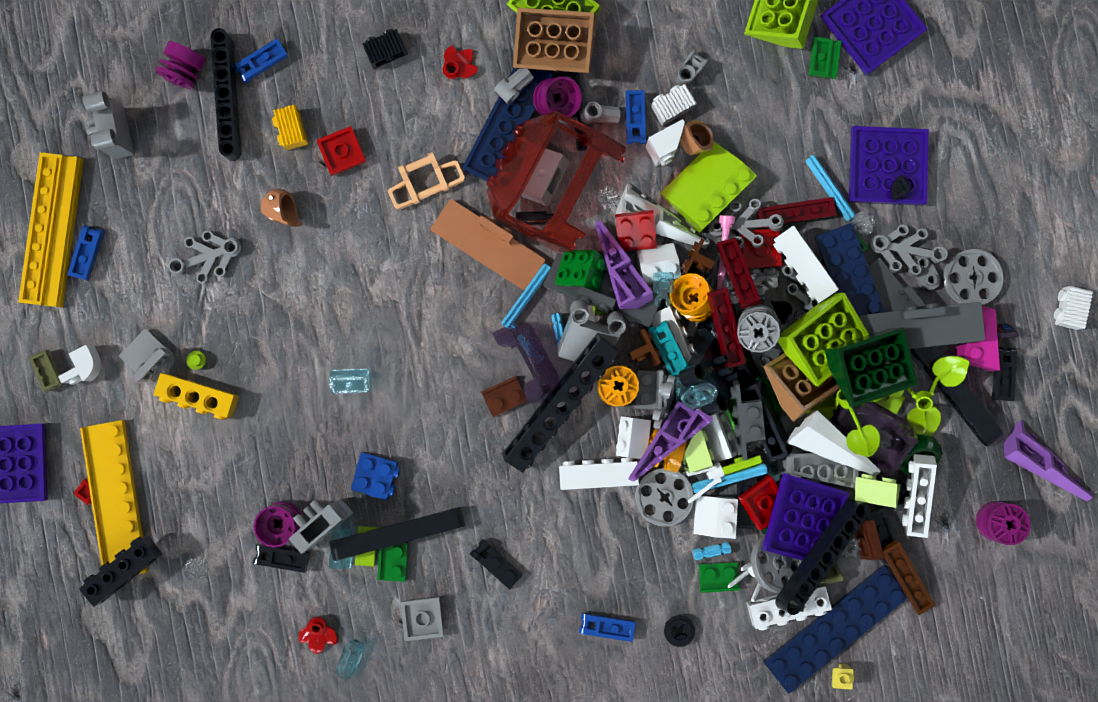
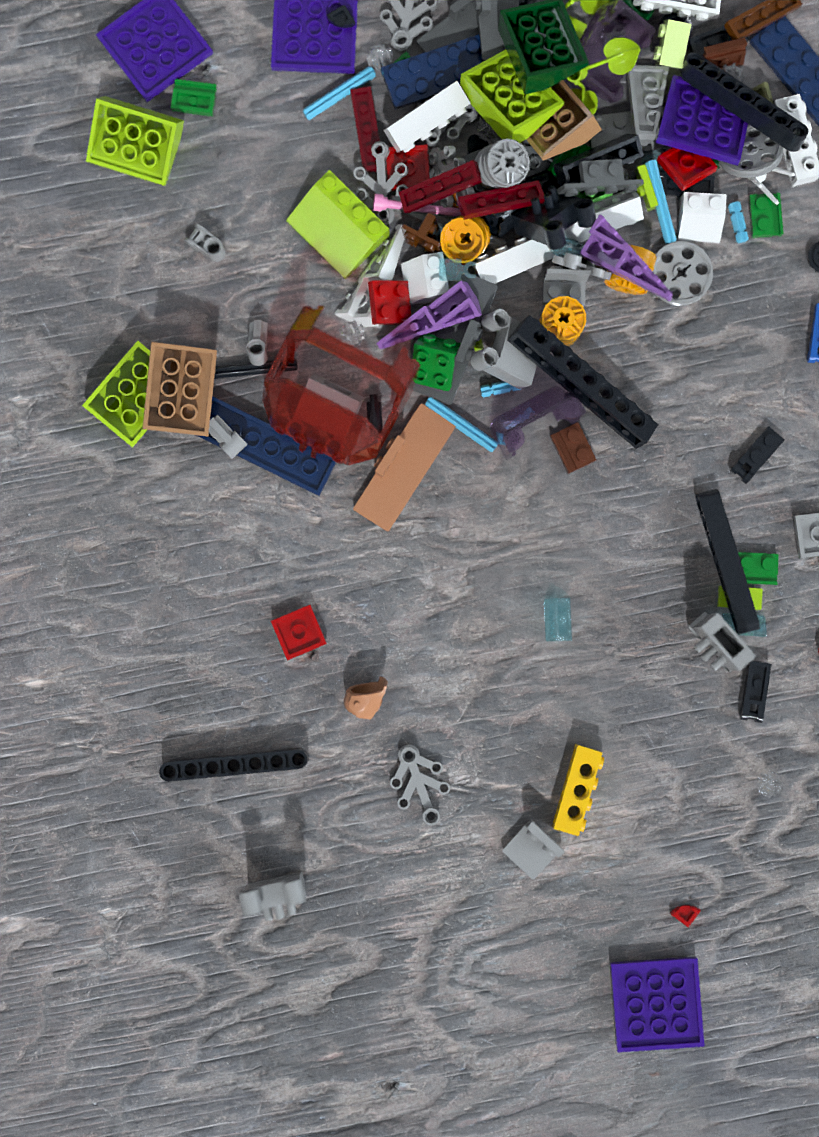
camera: 90 degrees left, 0 degrees up
(46, 370) = (551, 962): olive plate -> none
(51, 230) = (390, 962): yellow plate -> none
(85, 252) = (416, 921): blue plate -> none
(86, 363) = (543, 915): white brick -> none
(111, 488) = (694, 880): yellow plate -> none
(120, 571) = (775, 866): black brick -> none
(181, 64) = (201, 814): magenta wheel -> none
(196, 360) = (537, 792): lime plate -> none
(260, 60) = (194, 725): blue plate -> none
(267, 527) = (730, 692): magenta wheel -> none
(290, 127) = (272, 690): yellow brick -> none
(375, 476) = (663, 588): blue plate -> none
(384, 48) = (181, 584): black brick -> none
(443, 186) = (338, 518): light nougat bar -> none
(460, 61) = (196, 500): red plate -> none
(565, 92) = (241, 388): magenta wheel -> none
(596, 474) = (659, 343): white brick -> none
(633, 437) = (619, 303): white slope -> none
(635, 116) = (259, 304): blue plate -> none
(641, 353) = (522, 290): reddish brown bracket -> none
(664, 144) = (294, 268): white slope -> none
(668, 348) = (522, 264): teal plate -> none
(673, 104) = (247, 262): white brick -> none
(696, 138) = (286, 236): nougat helmet -> none
(696, 453) = (638, 232): yellowish green slope -> none
(699, 395) = (576, 228): clear light blue plate -> none
(713, 472) = (654, 218): white plant -> none
(823, 438) = (617, 100): white wedge -> none

